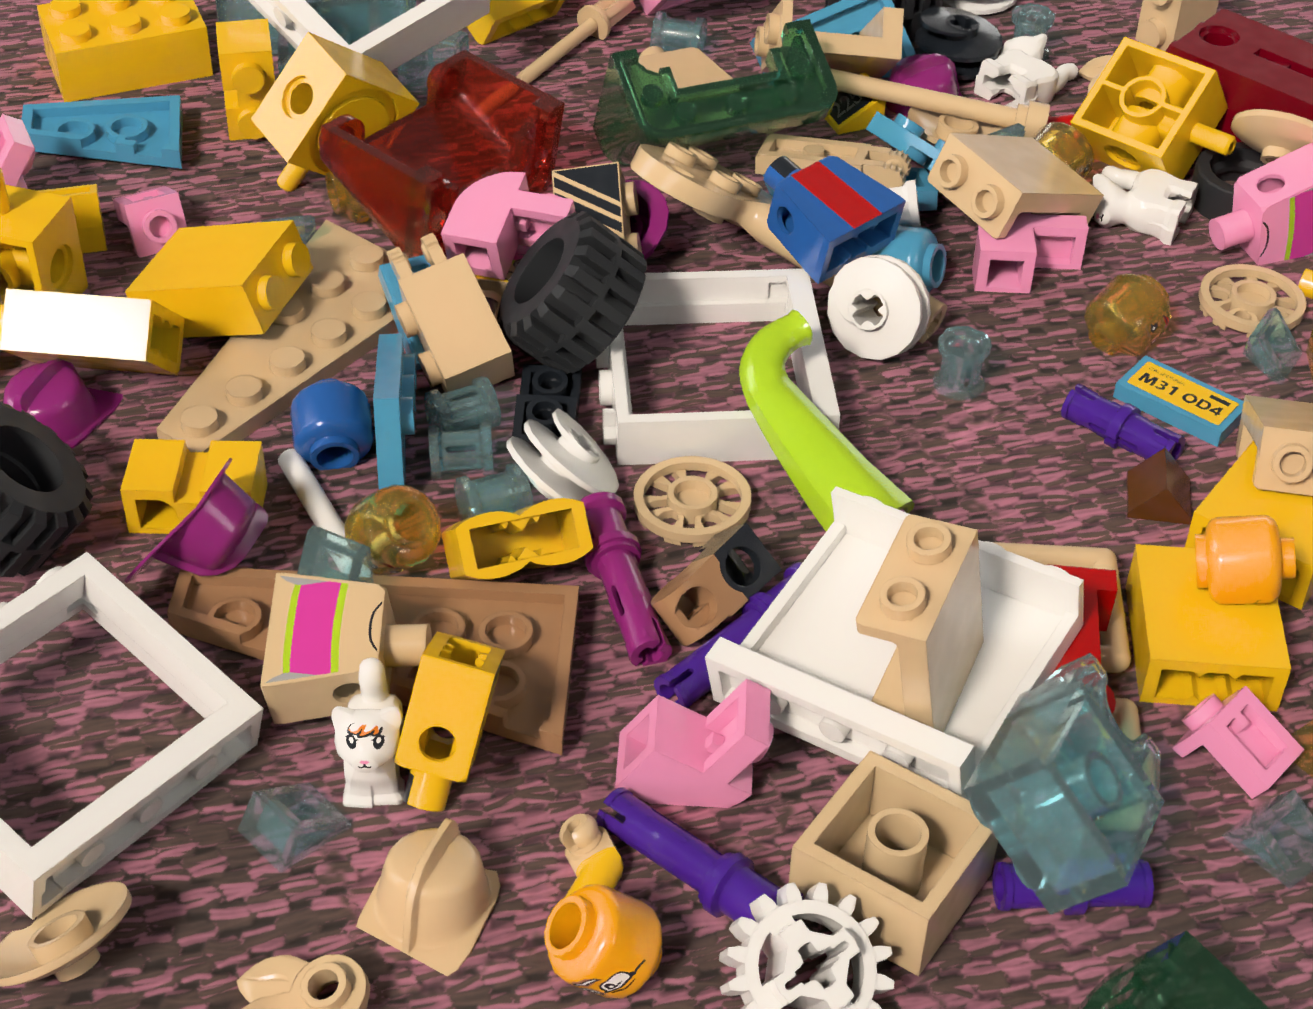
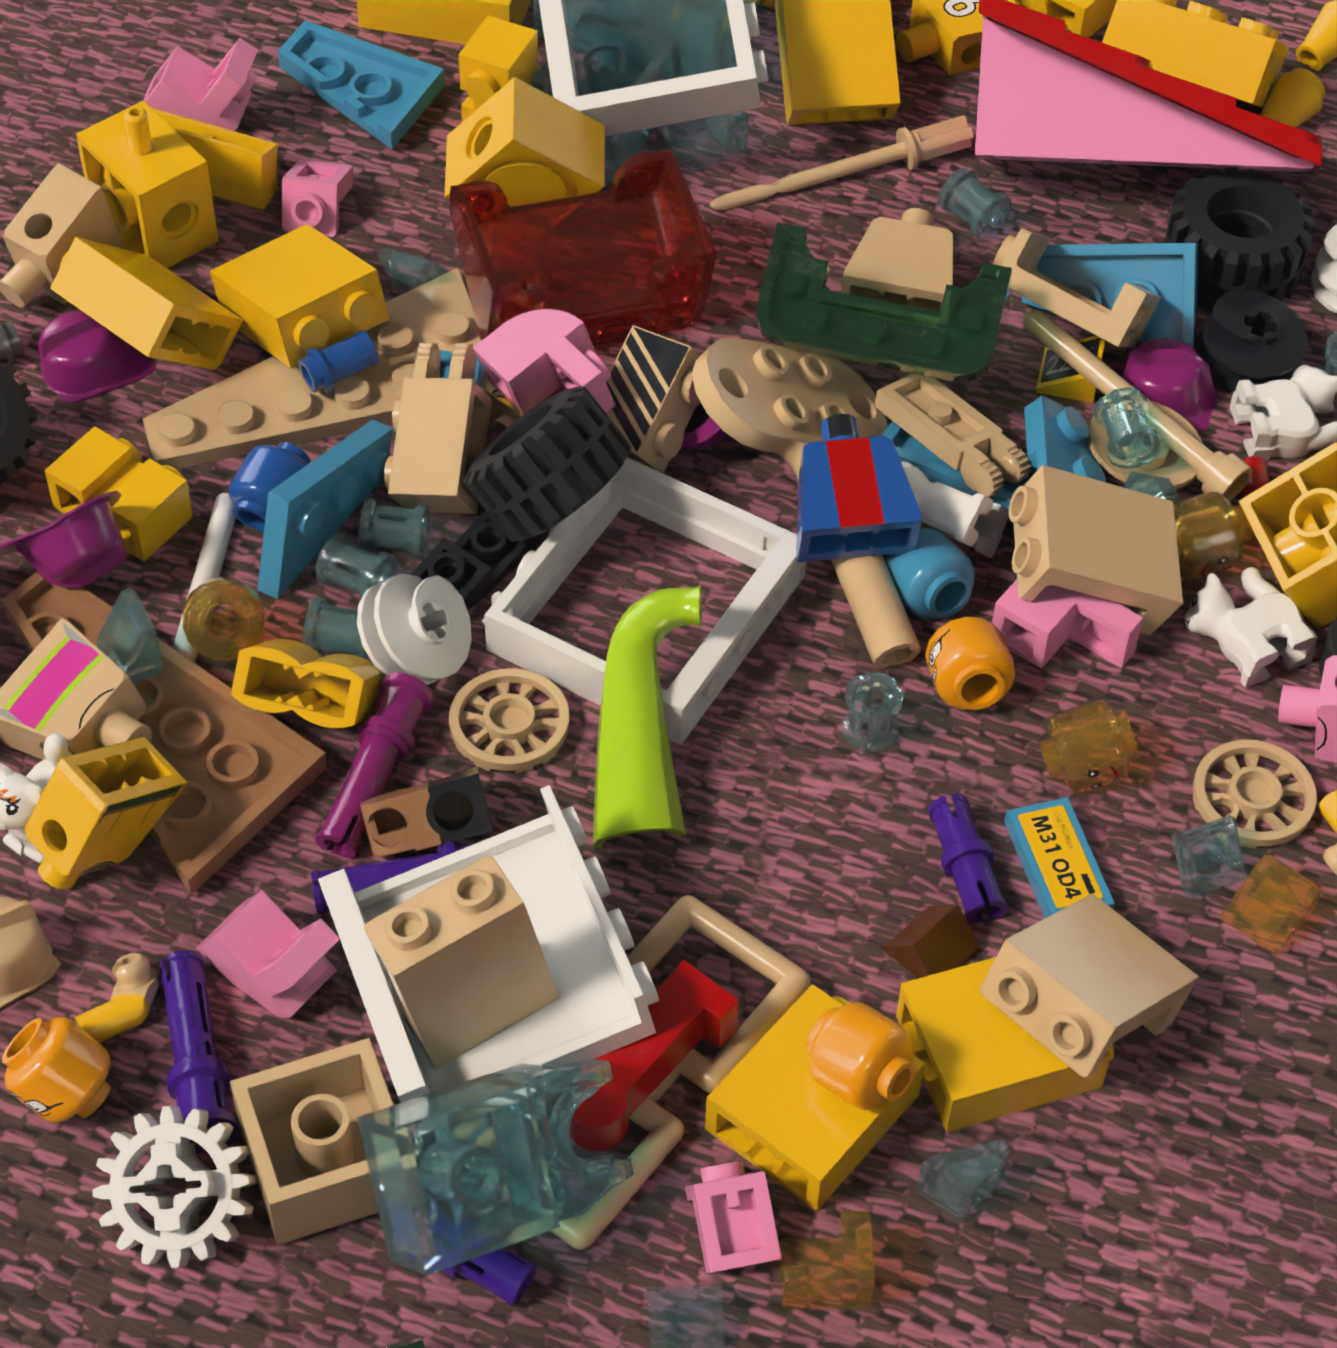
camera: 35 degrees right, 10 degrees up
(298, 318) = (337, 361): none -> blue pin
(903, 309) = (836, 612): white piece -> none
(950, 108) = (1127, 428): none -> clear light blue bush
(994, 302) = (970, 663): none -> light orange head

